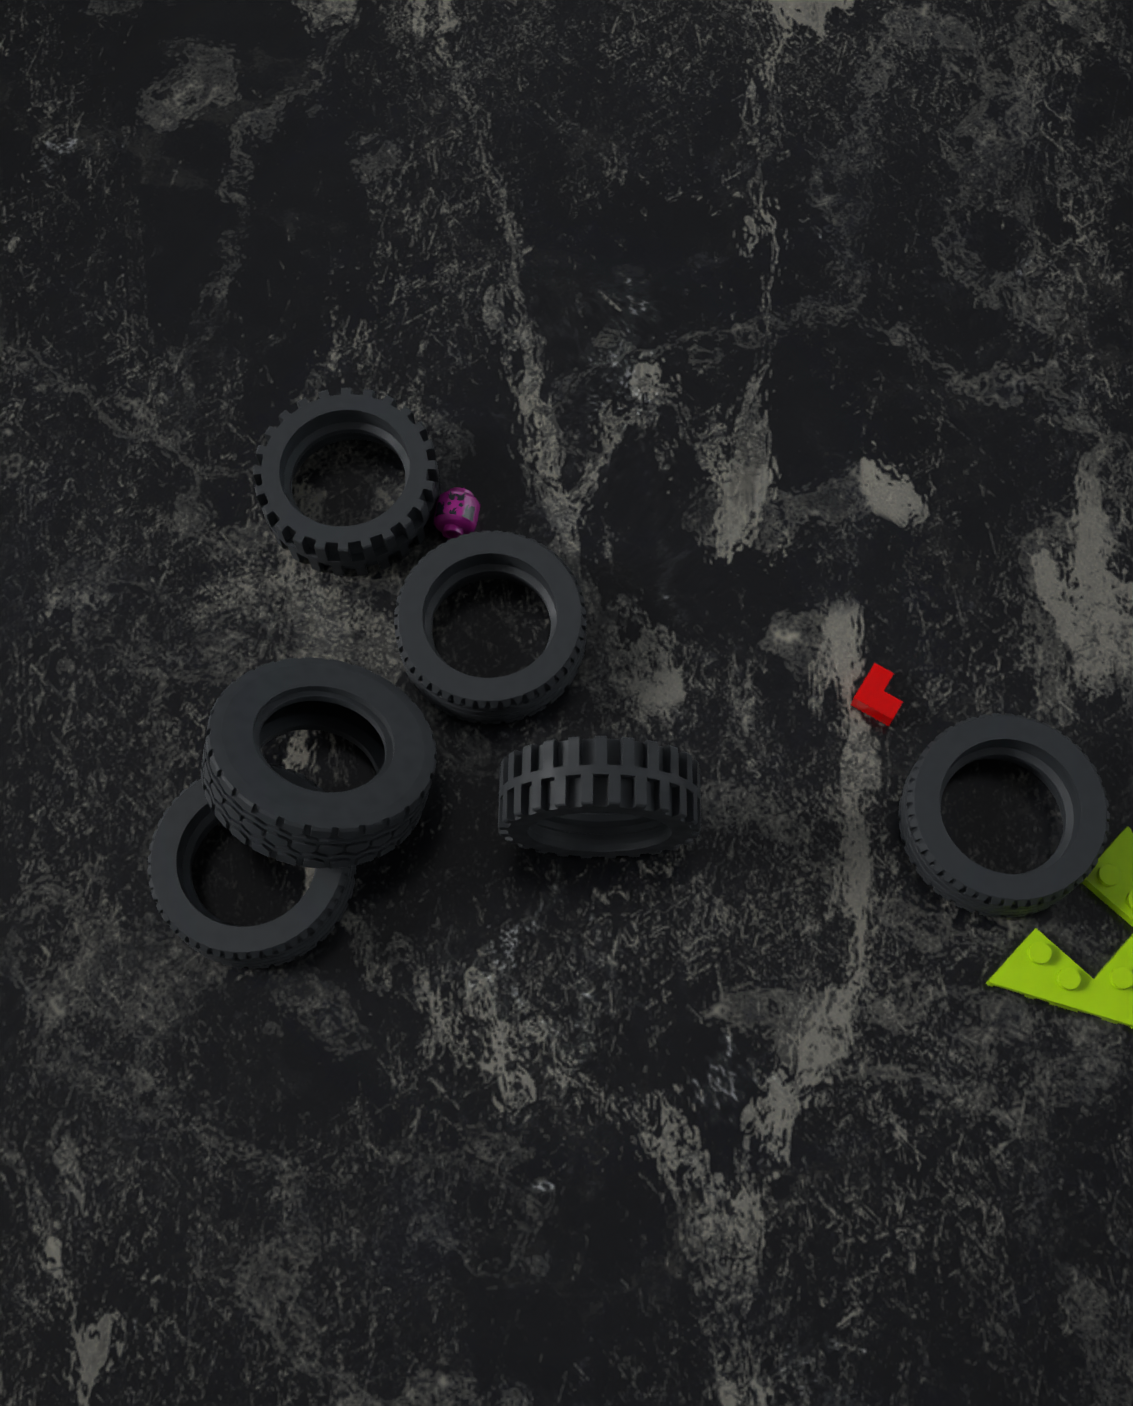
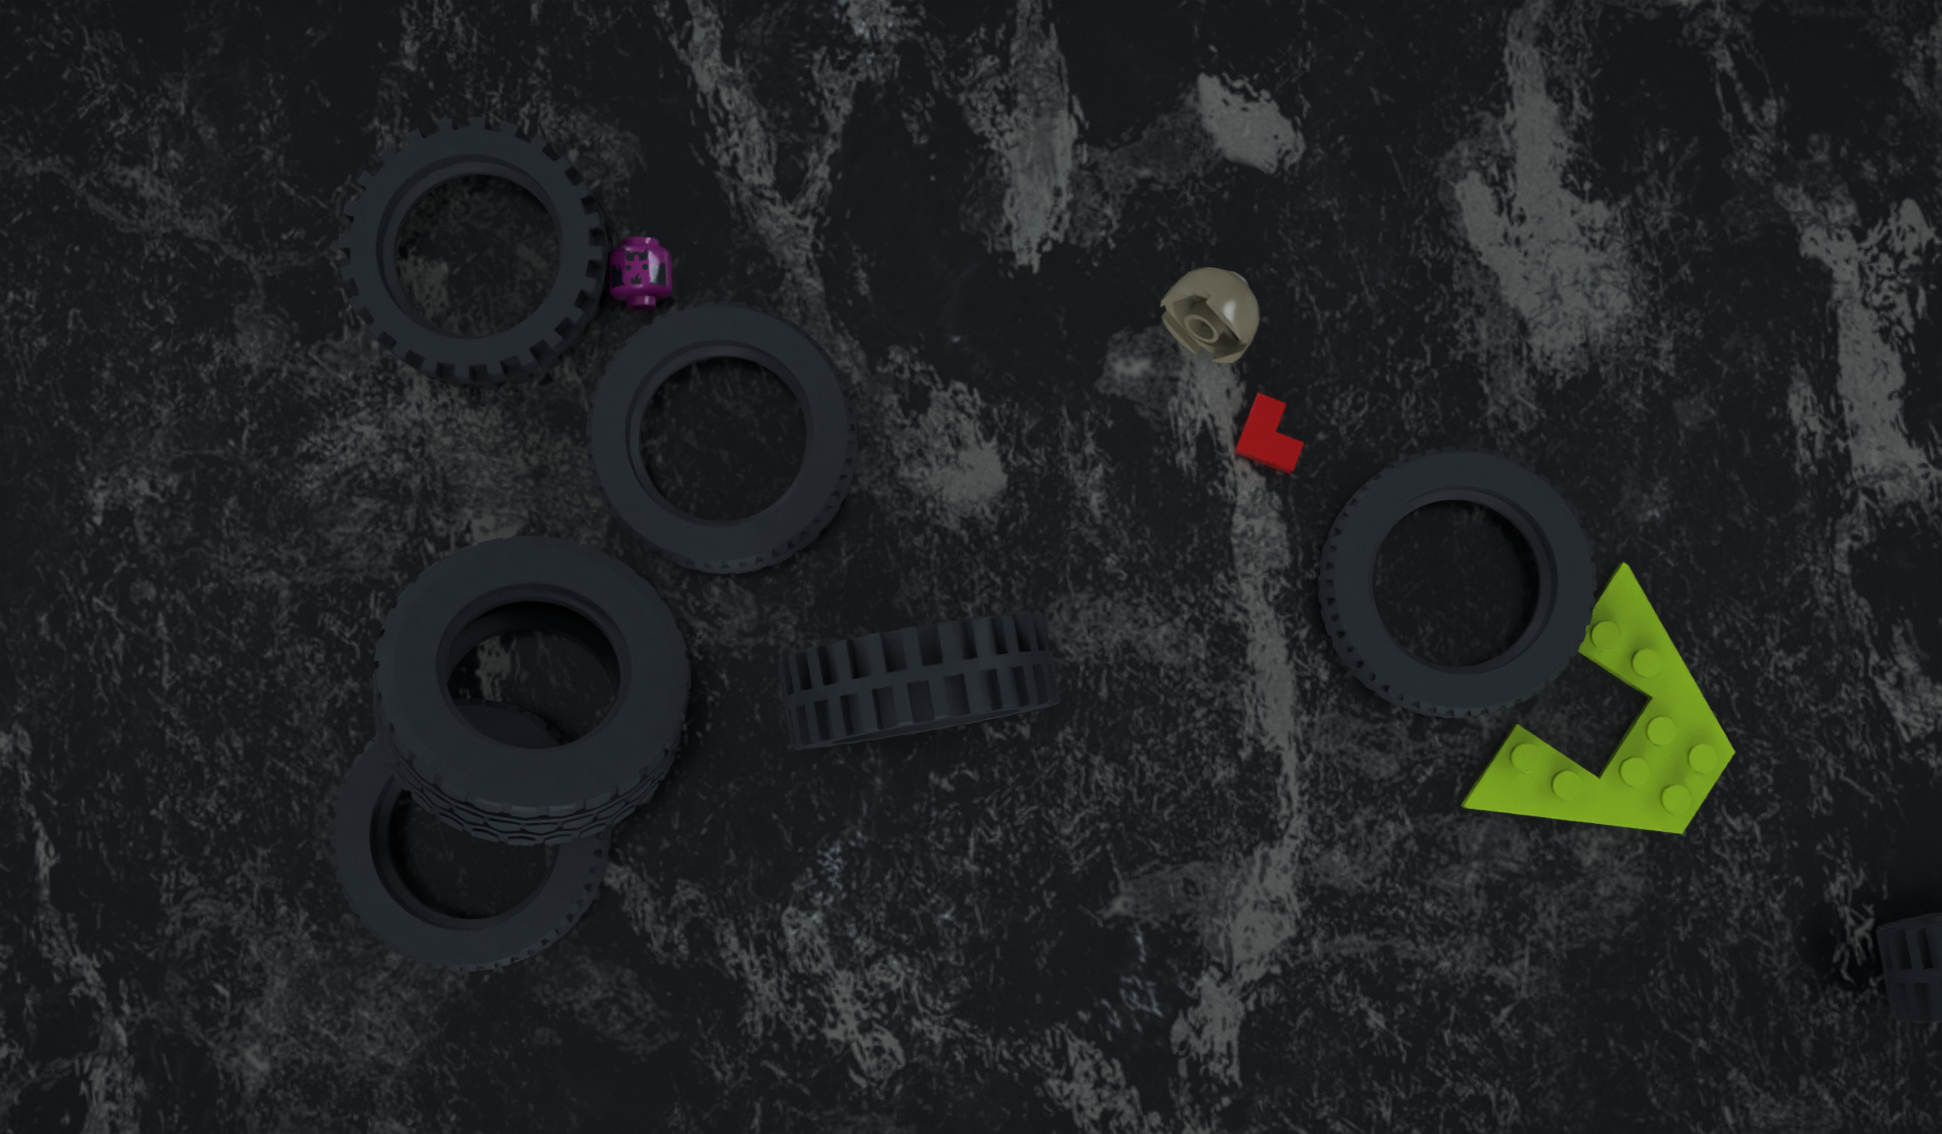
camera: 10 degrees left, 15 degrees up
(849, 604) = (1213, 312): none -> dark tan cylinder

